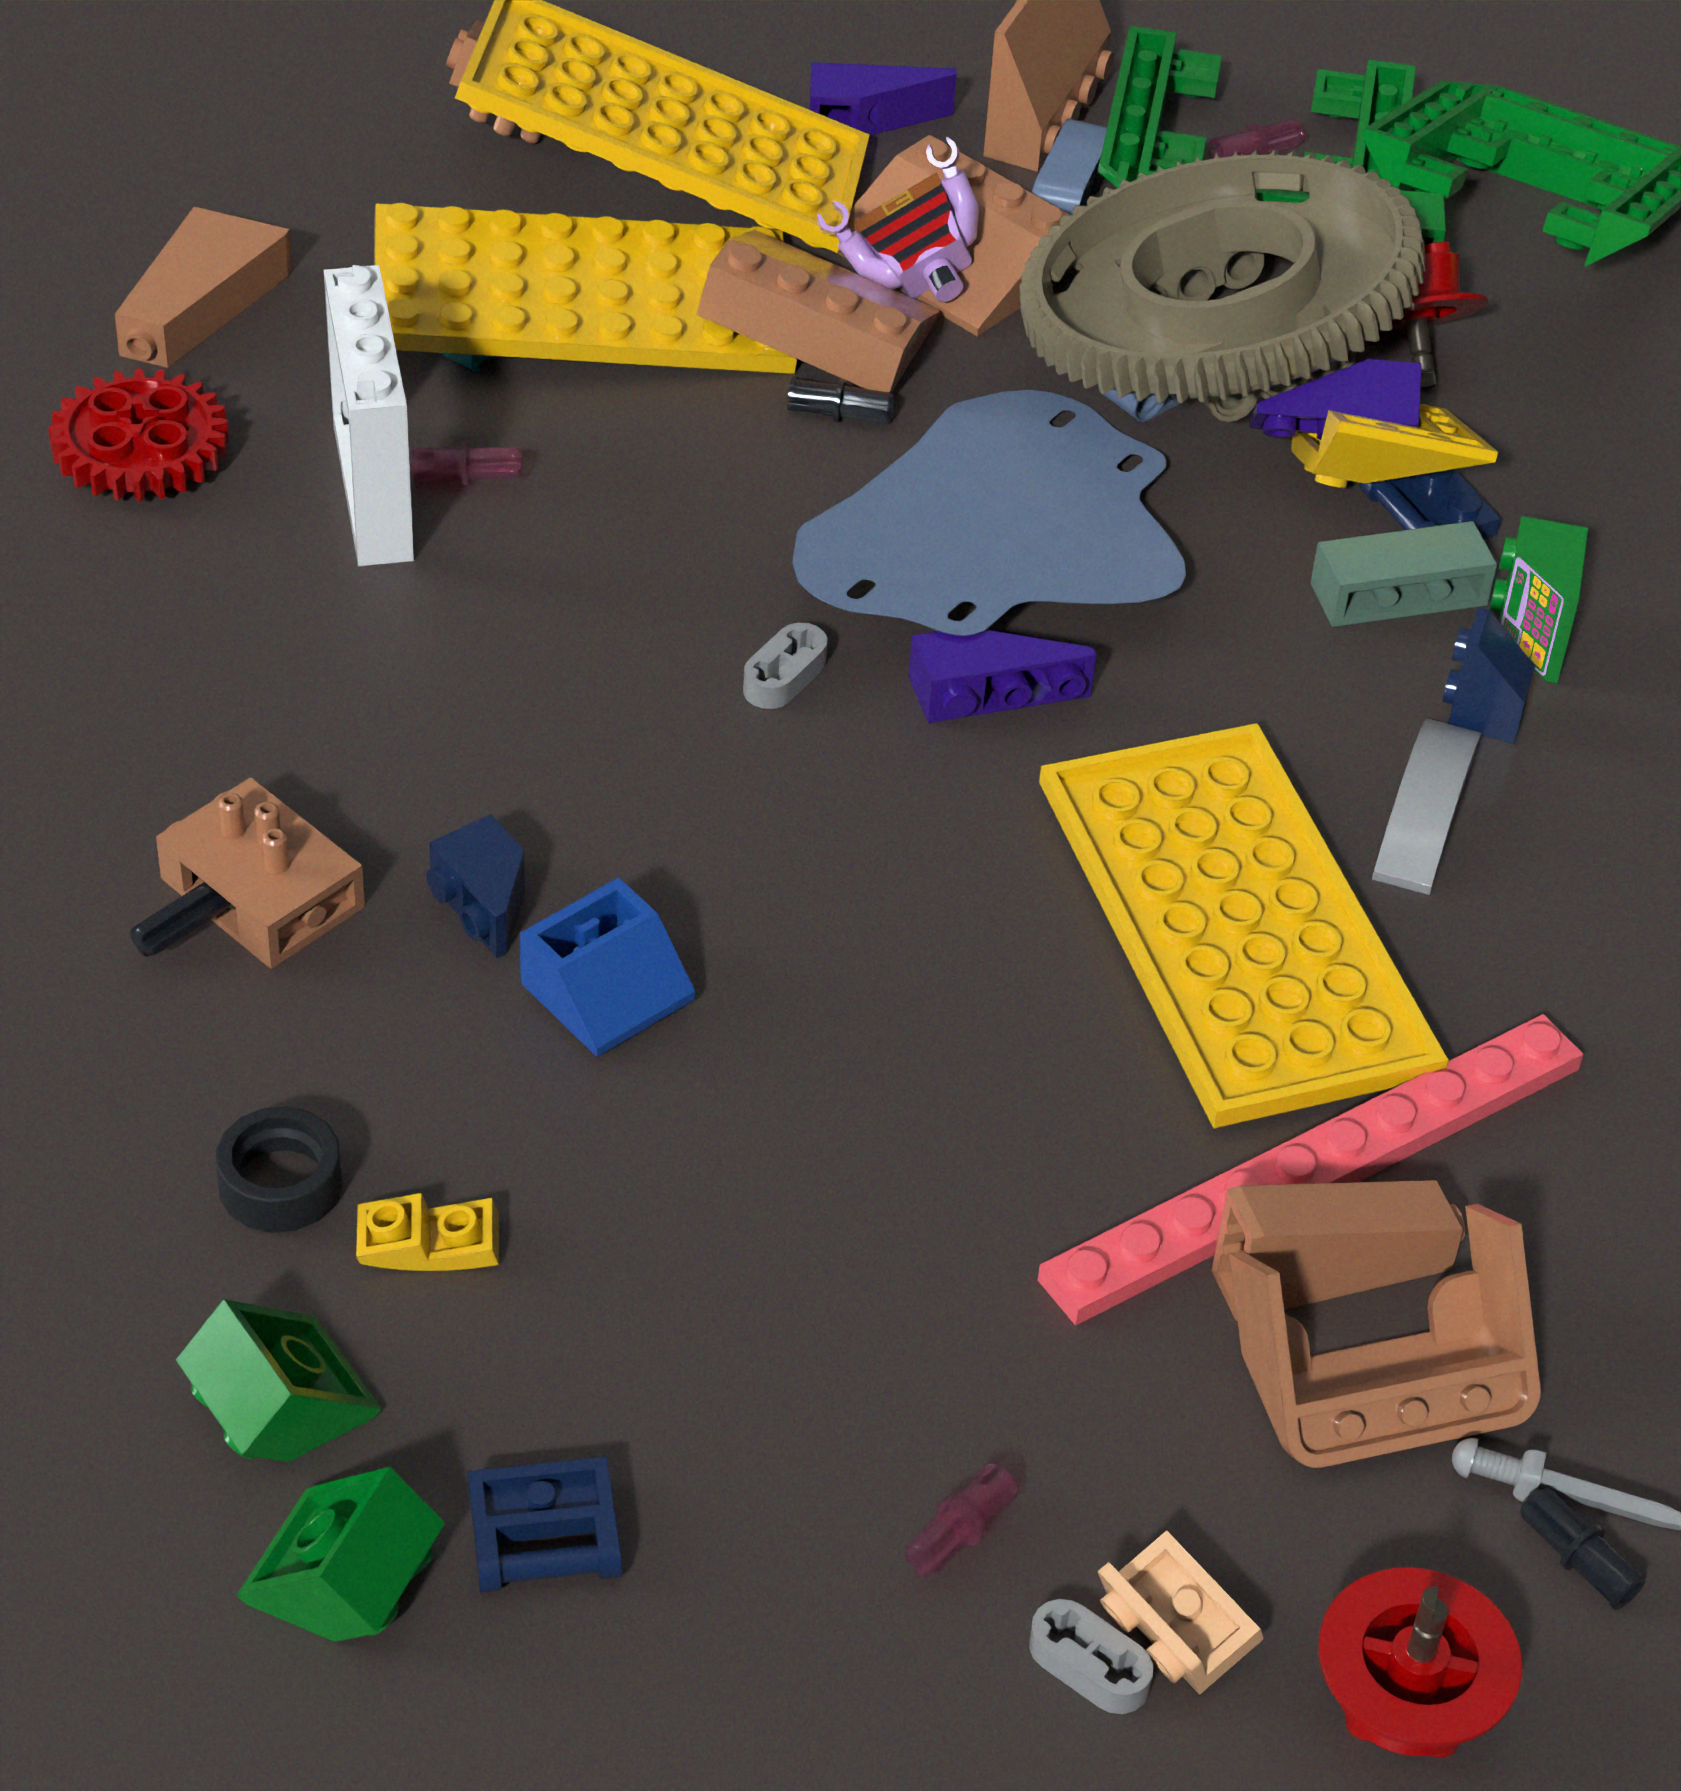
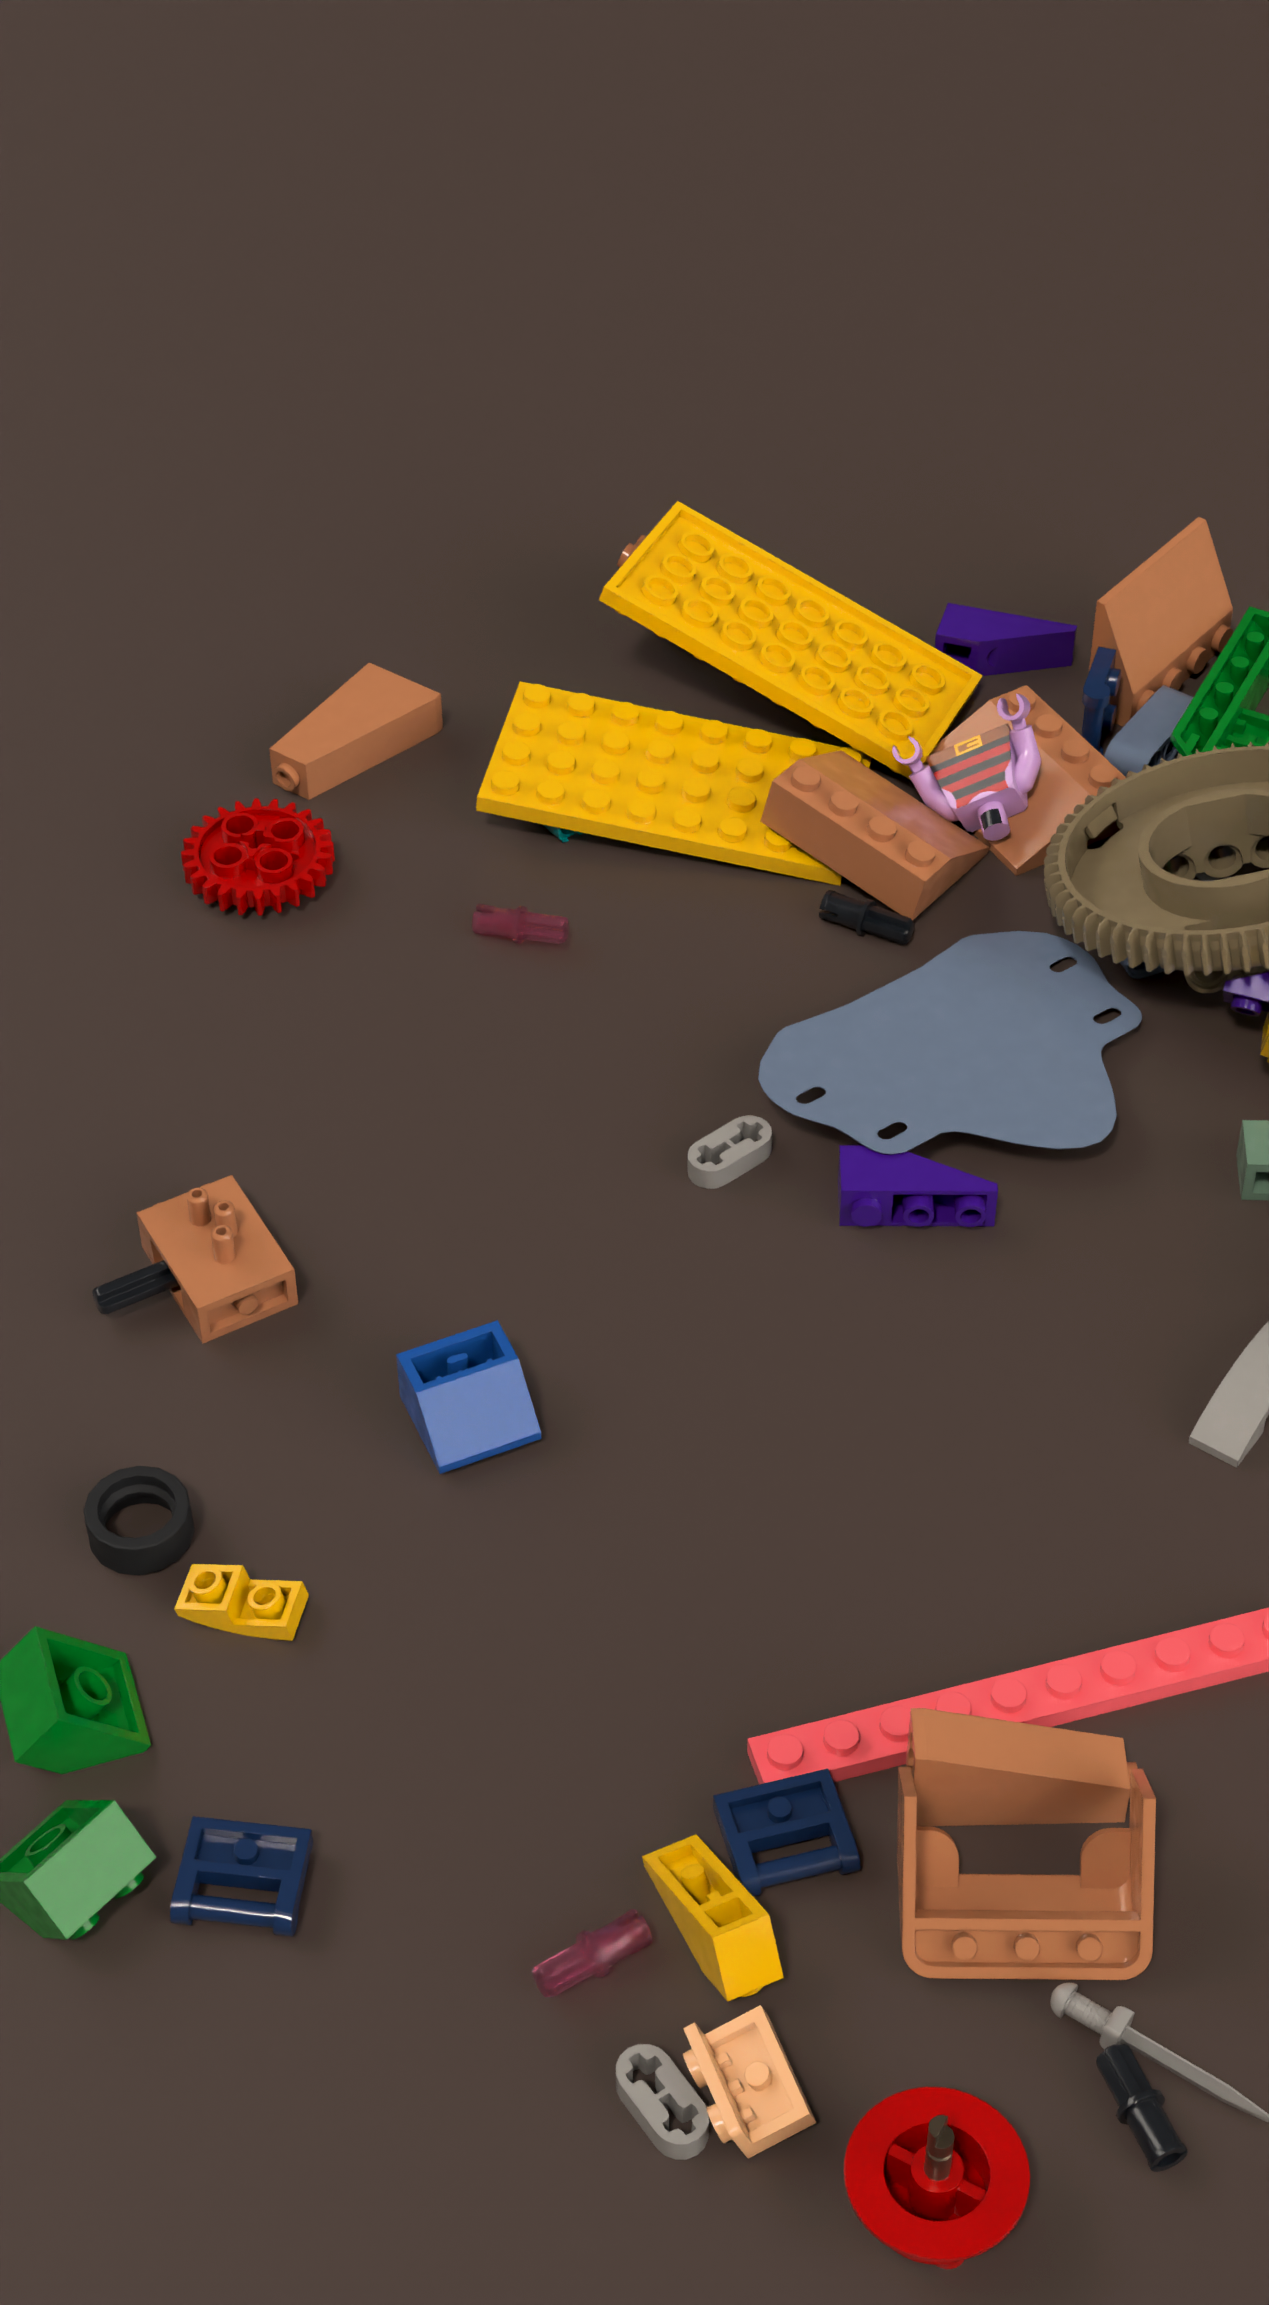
camera: 20 degrees right, 0 degrees up
(369, 415) = (436, 894): white window -> none
(481, 879) = (398, 1297): dark blue slope -> none
(1012, 133) = (1099, 687): none -> dark blue plate
(1082, 1453) = (716, 1917): none -> yellow slope
(1106, 1335) = (780, 1816): none -> dark blue plate
(1240, 925) = (1045, 1464): yellow plate -> none

